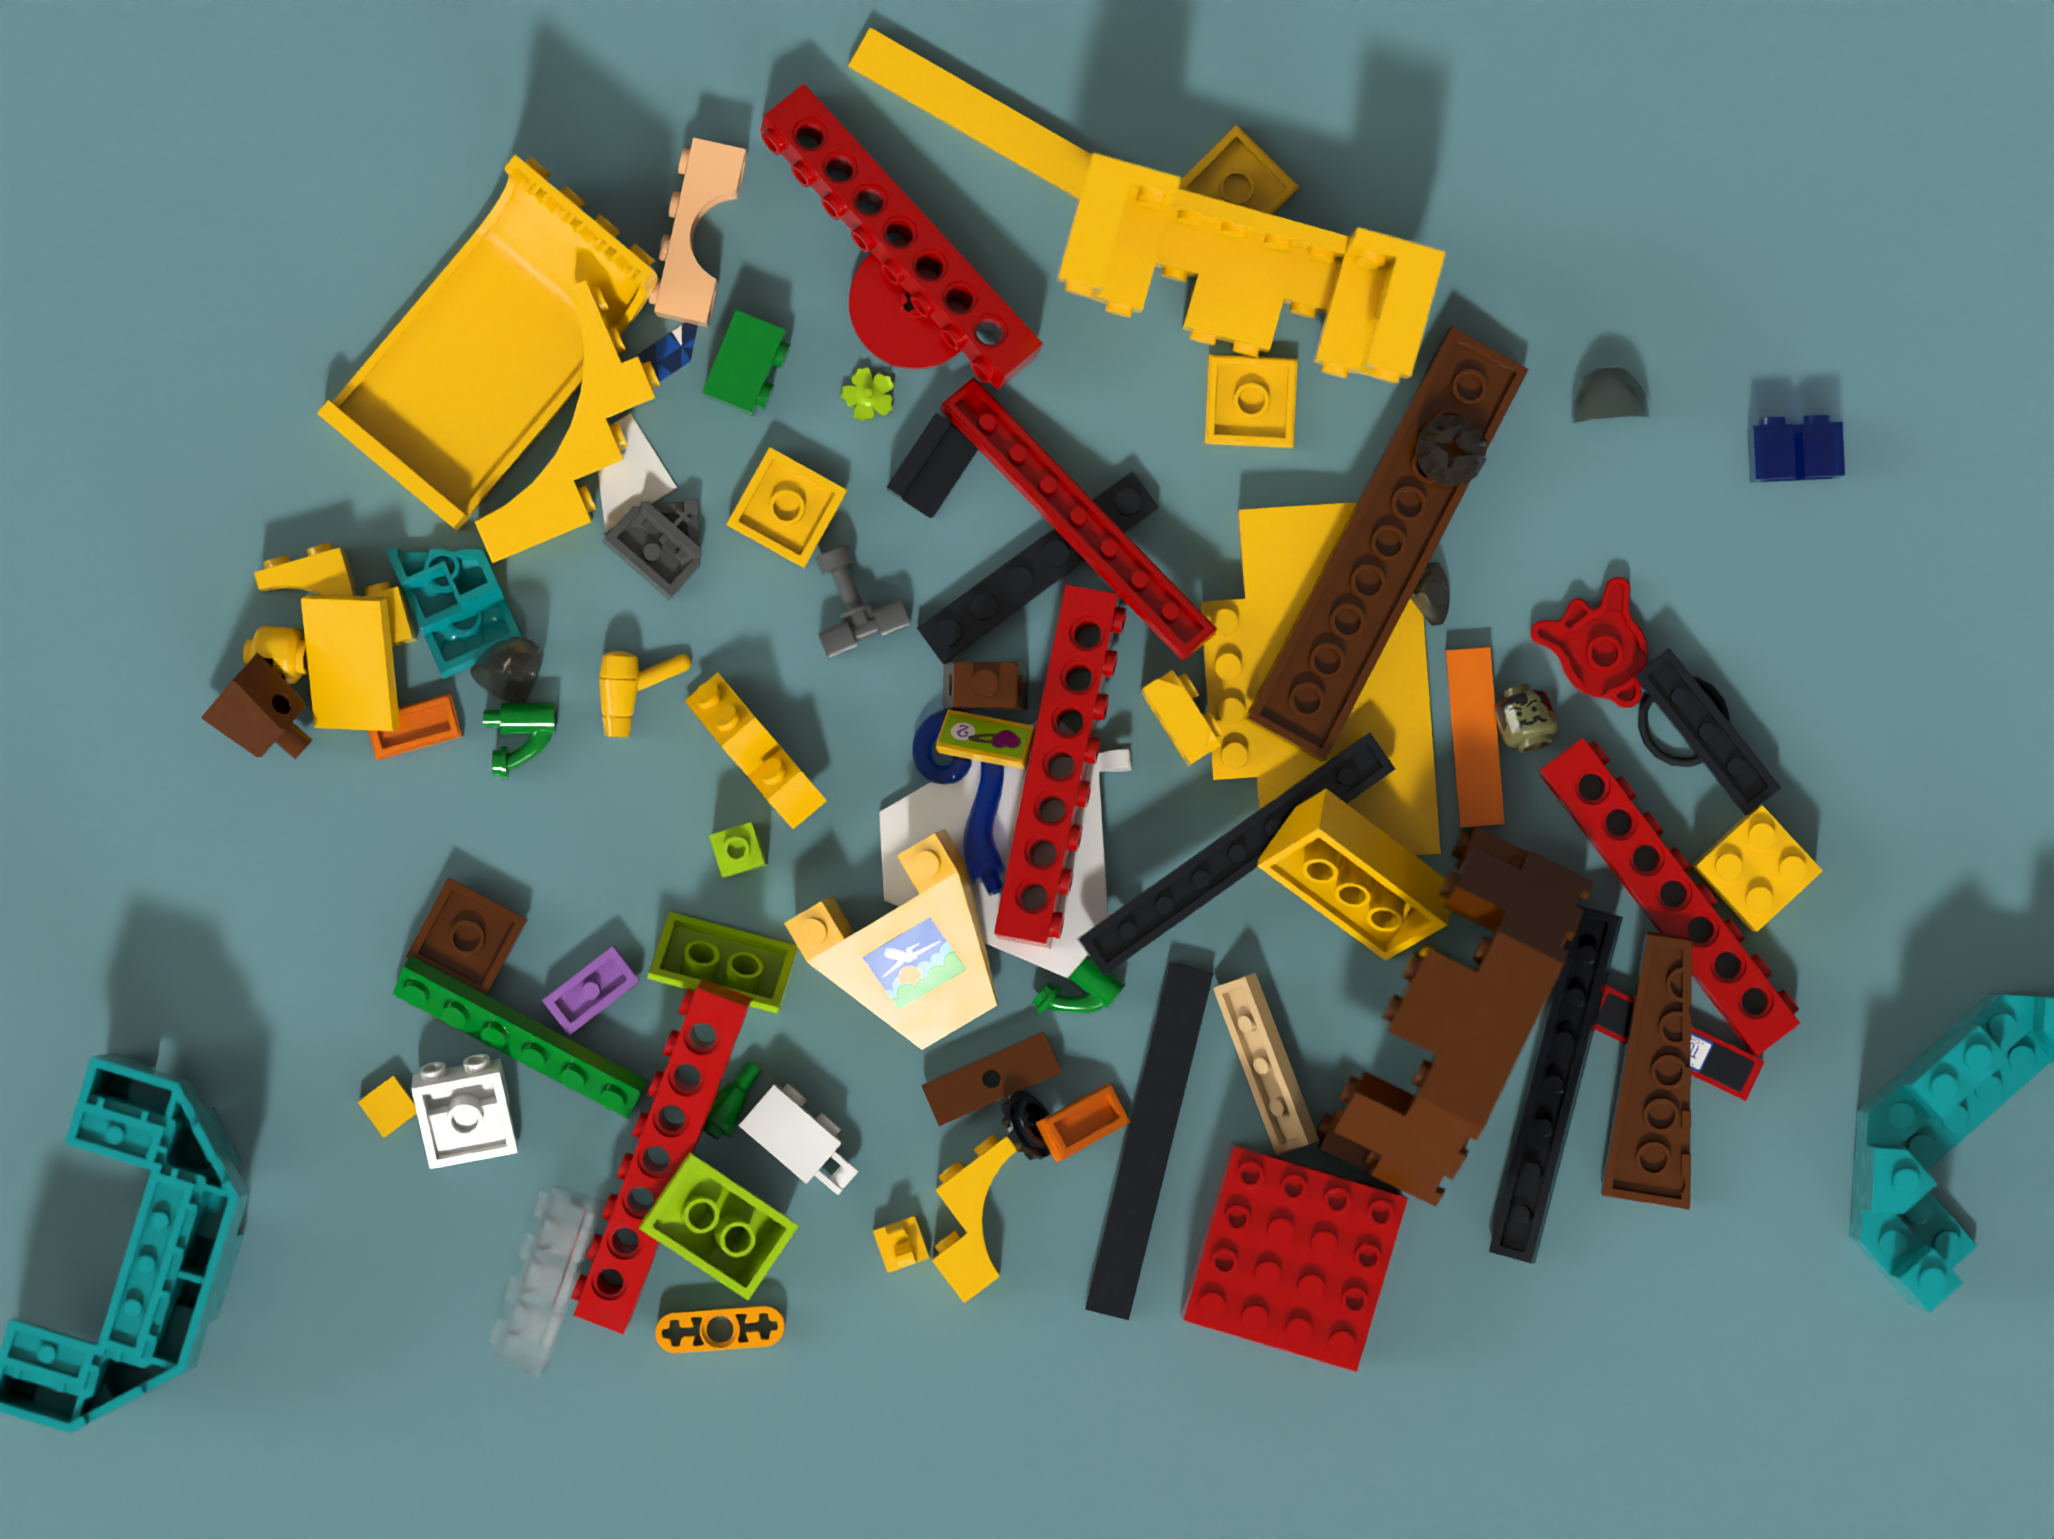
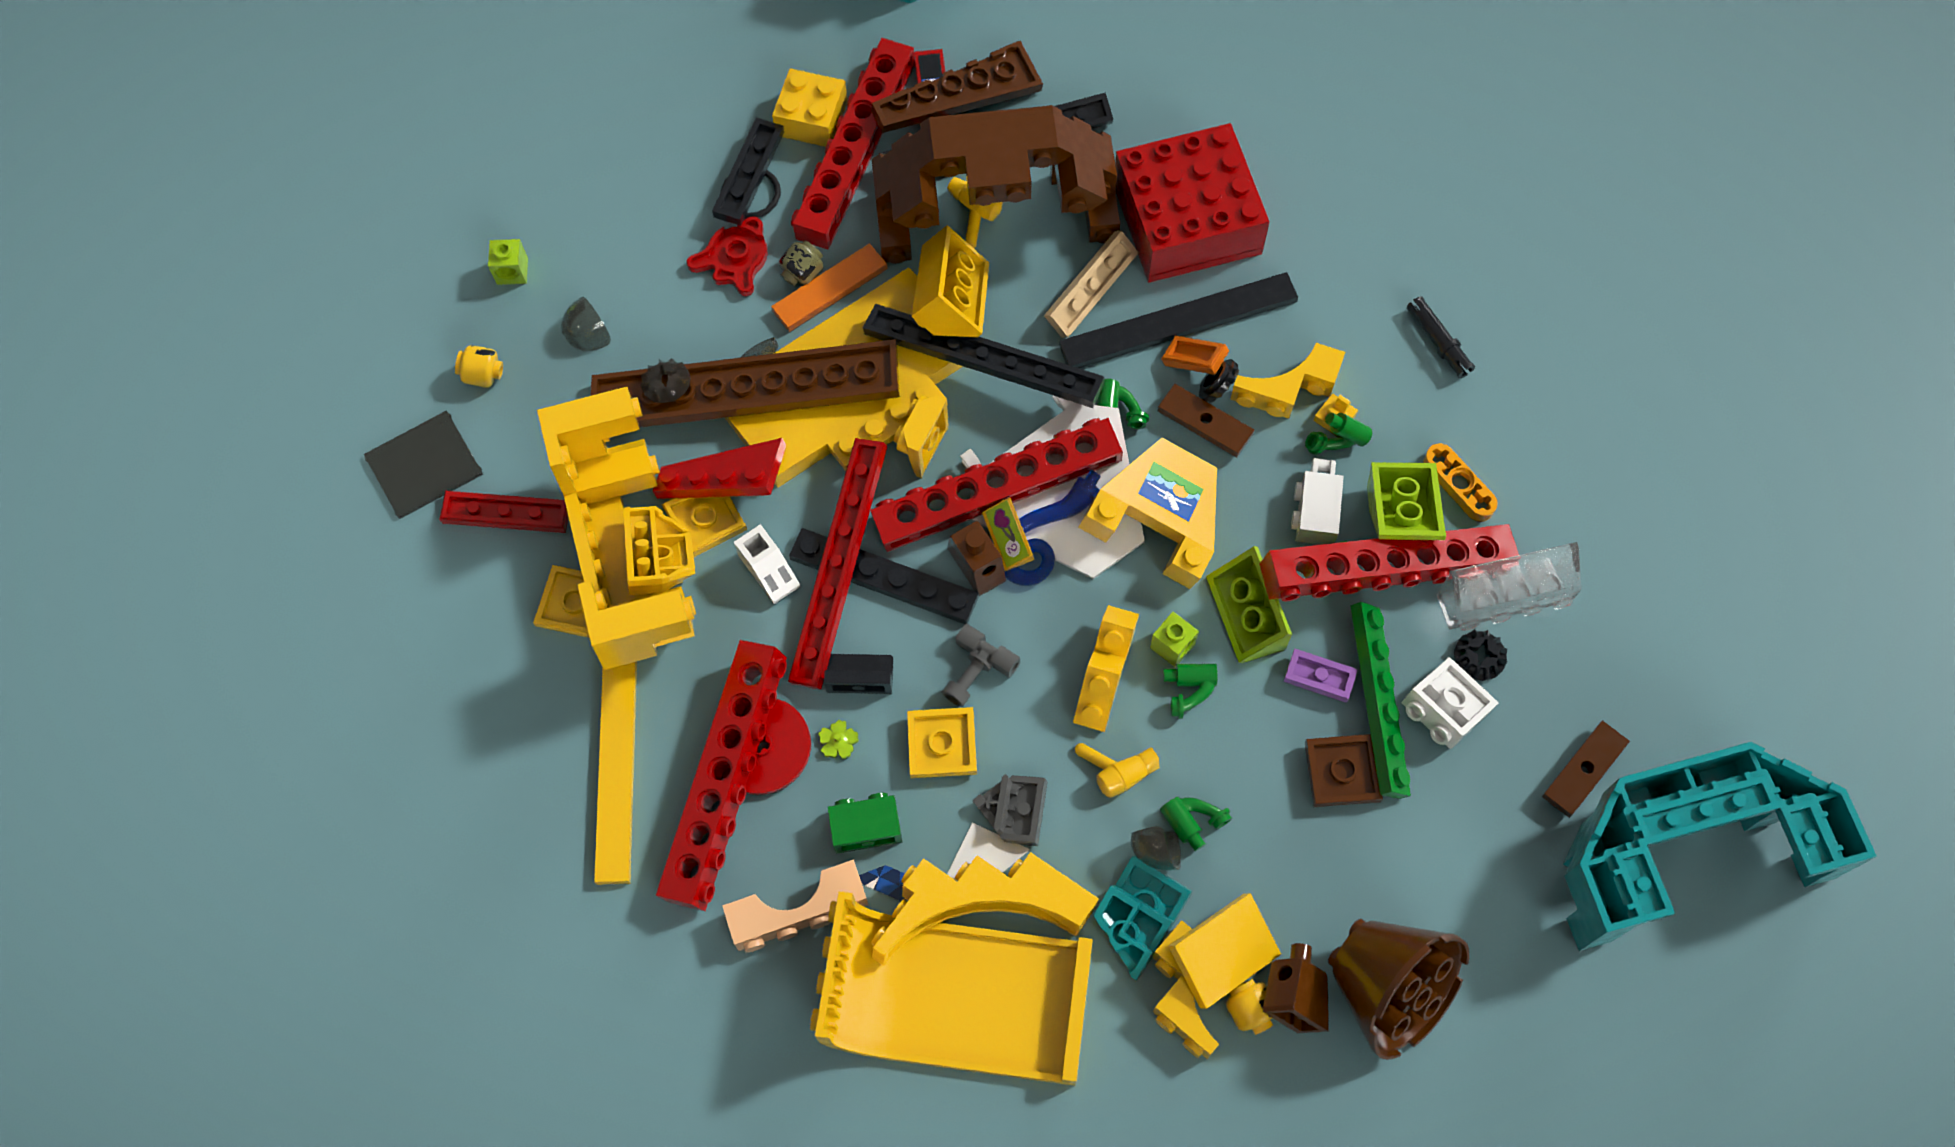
camera: 120 degrees left, 20 degrees down
(199, 817) = (1398, 981): none -> reddish brown cone
(303, 1238) = (1597, 756): none -> reddish brown tile
(388, 1106) = (1479, 754): yellow tile -> none
(420, 726) = (1228, 883): orange tile -> none
(502, 1173) = (1468, 660): none -> black gear
(685, 844) = (1191, 675): none -> green plant
(869, 1225) = (1349, 429): none -> green plant
(918, 1445) = (1447, 346): none -> black pin
(1130, 435) = (766, 564): none -> white slope
(1204, 304) = (656, 551): none -> yellow wedge
(1278, 453) = (724, 474): none -> red wing
(1411, 163) = (504, 512): none -> red tile
(1540, 103) = (423, 464): none -> clear smoke piece
(1628, 237) = (478, 366): none -> yellow head
(1762, 352) = (508, 261): none -> lime brick
(1796, 451) = (559, 219): clear blue piece -> none

